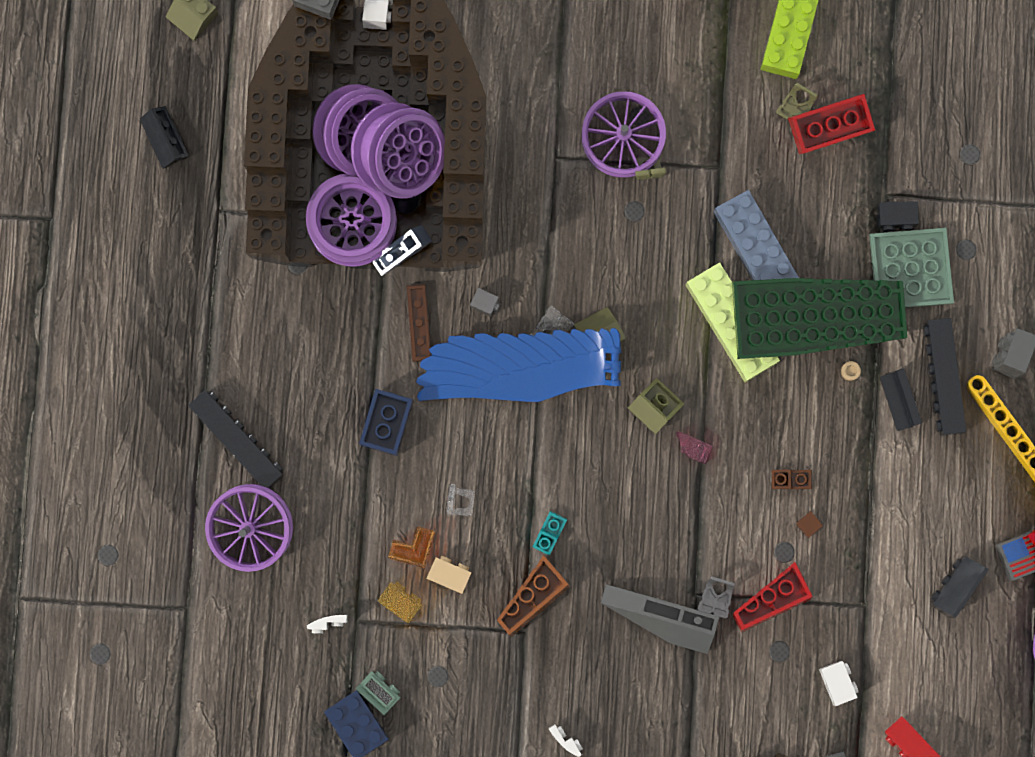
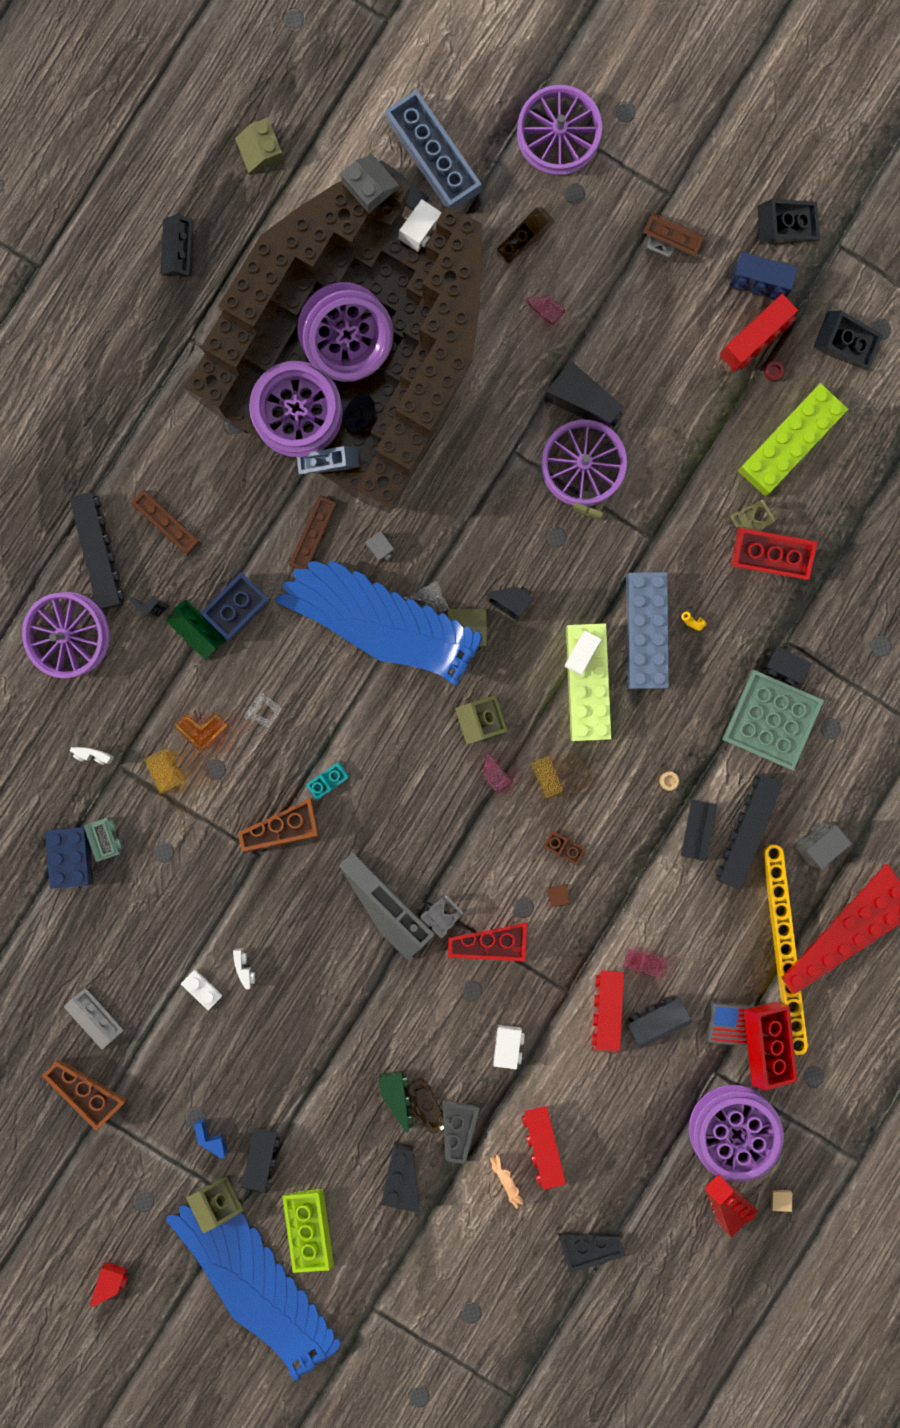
camera: 20 degrees right, 5 degrees up
(283, 382) = (165, 522): none -> reddish brown tile
(315, 462) = (153, 608): none -> black panel
(360, 462) = (195, 629): none -> dark green panel
(377, 148) = (386, 387): medium lavender wheel -> none
(449, 575) = (220, 770): tan brick -> none
(517, 18) = (546, 308): none -> clear pink slope
(593, 77) = (583, 397): none -> black slope
(626, 287) = (511, 600): none -> black slope
(714, 298) = (582, 653): none -> white slope
(741, 425) = (546, 777): none -> clear yellow brick
(793, 222) = (690, 621): none -> yellow arm
(815, 315) = (664, 716): dark green wing -> none
(910, 603) = (608, 1012): none -> red wedge
(918, 543) = (644, 963): none -> clear pink slope

